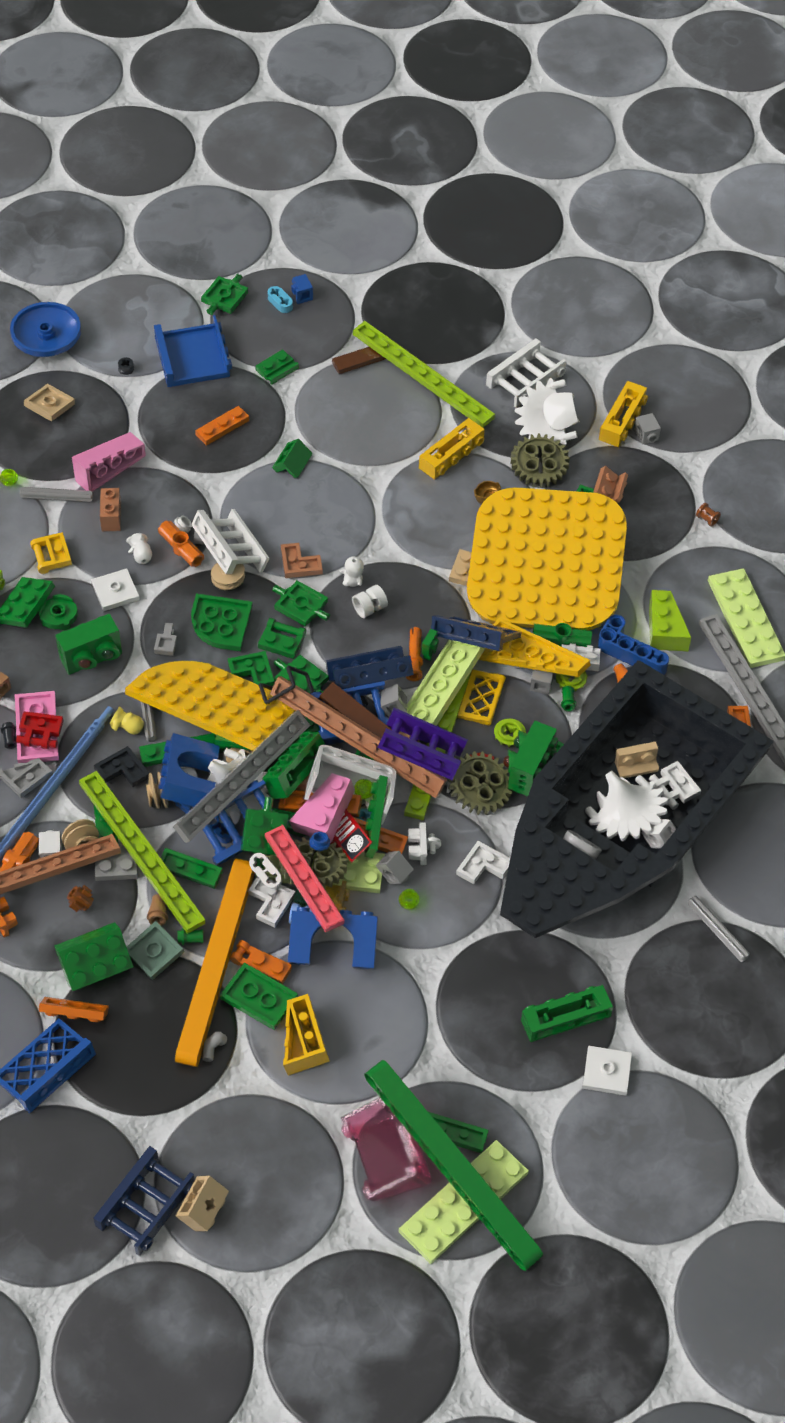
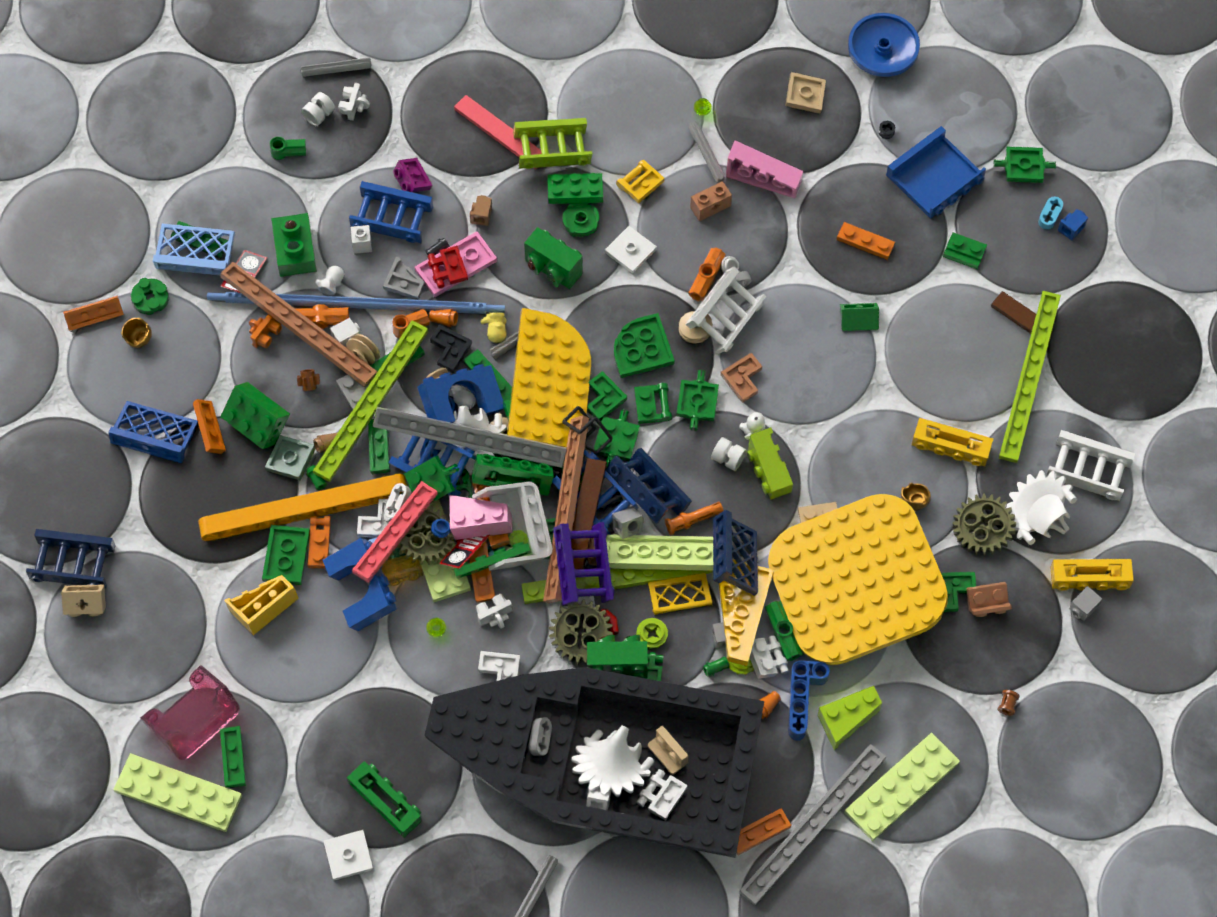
camera: 65 degrees right, 10 degrees up
(73, 791) = (420, 317): none -> orange piece
(88, 757) = (445, 317): none -> orange cone
(140, 548) = (683, 245): white animal -> none
(166, 642) = (595, 316): light grey plate -> none
(210, 1043) = (227, 540): light grey arm -> none
(394, 867) = (456, 600): light grey brick -> none
(399, 576) = (769, 464): none -> lime wedge
(430, 644) = (703, 523): green plate -> none
(454, 1165) = (190, 765): green beam -> none

